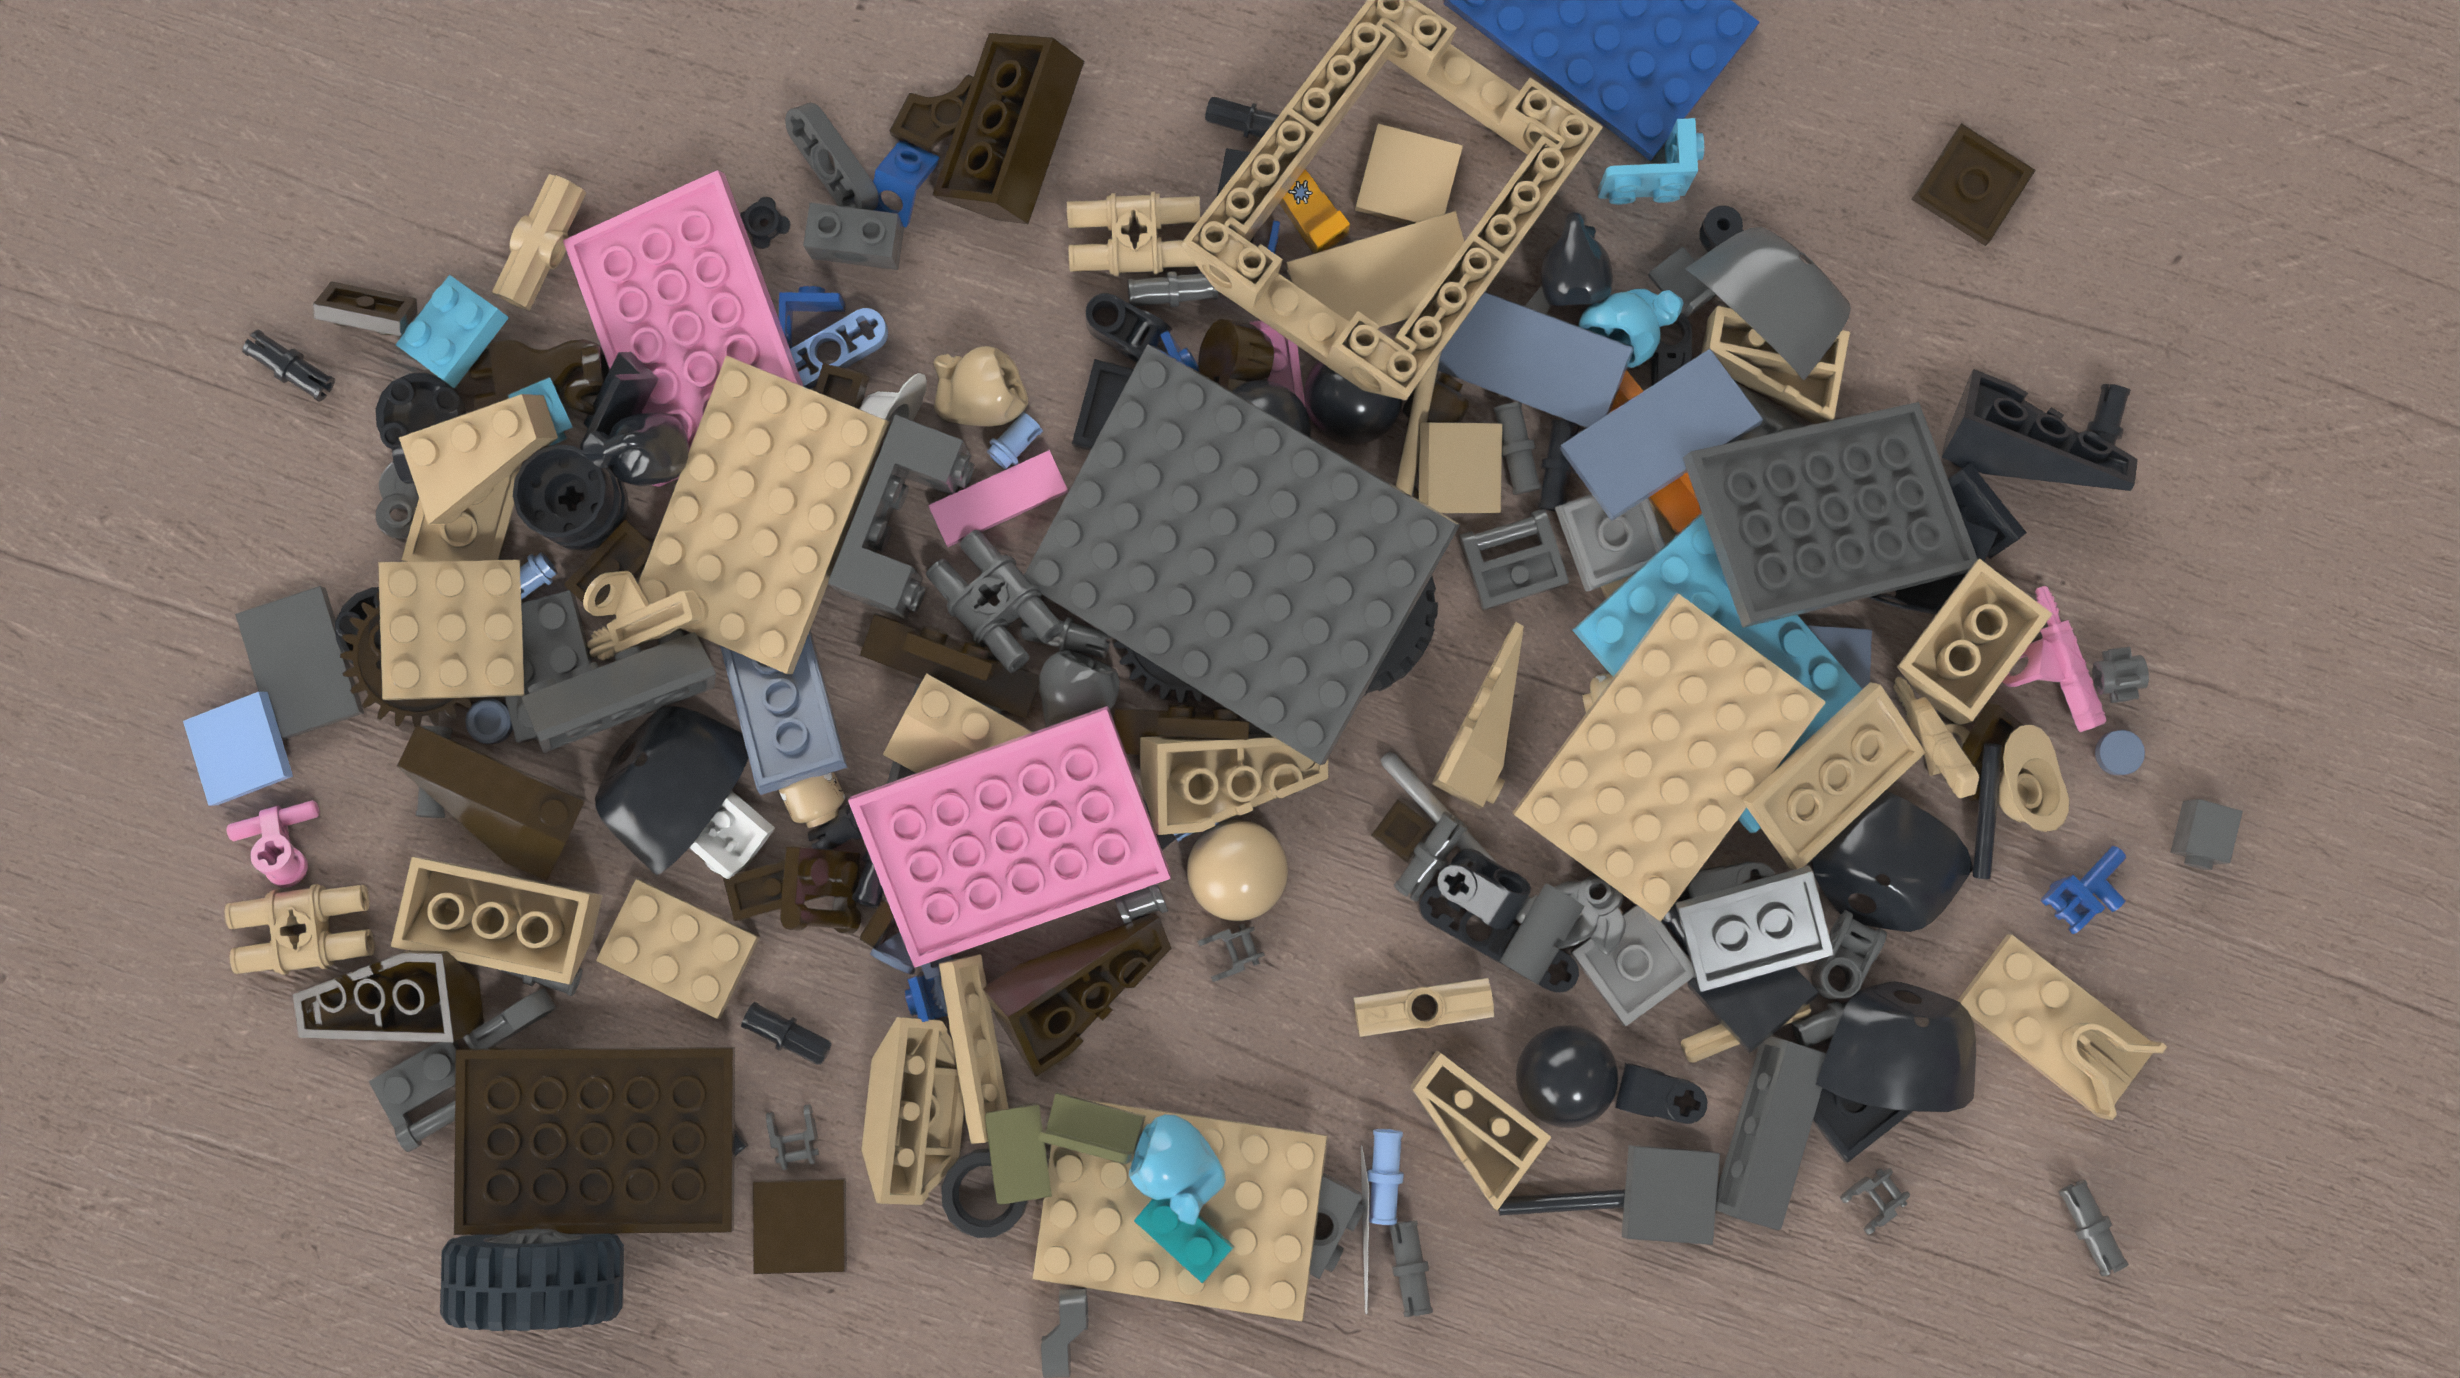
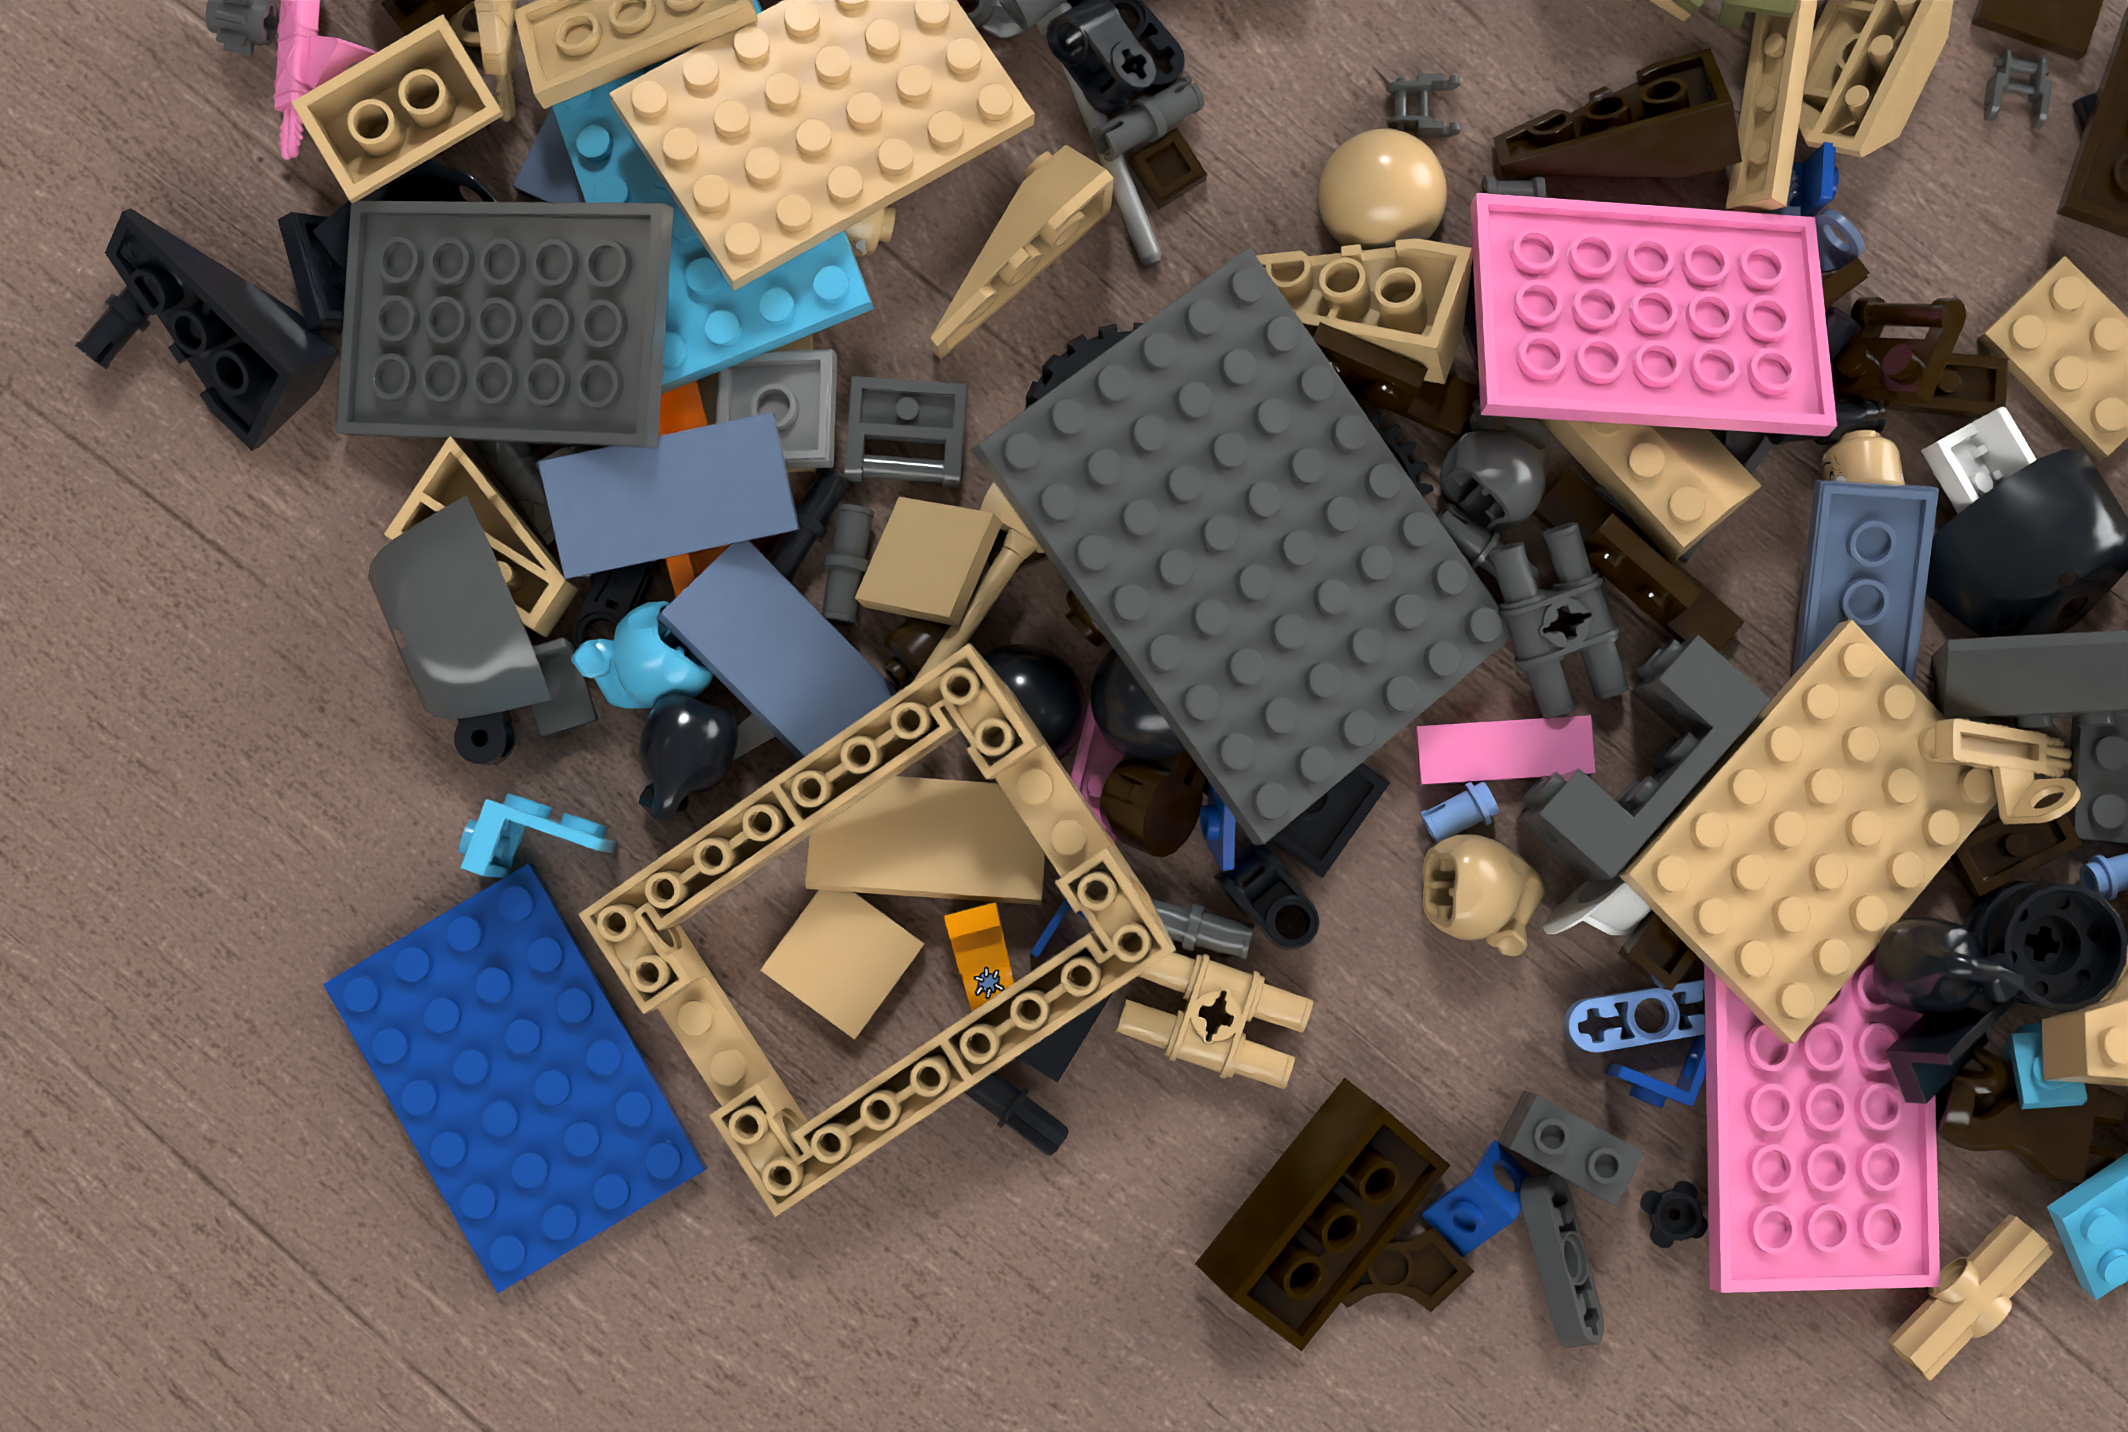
camera: 165 degrees left, 0 degrees up
(786, 1034) = (1987, 208): black axle -> none
(1973, 184) = (149, 677): dark brown tile -> none

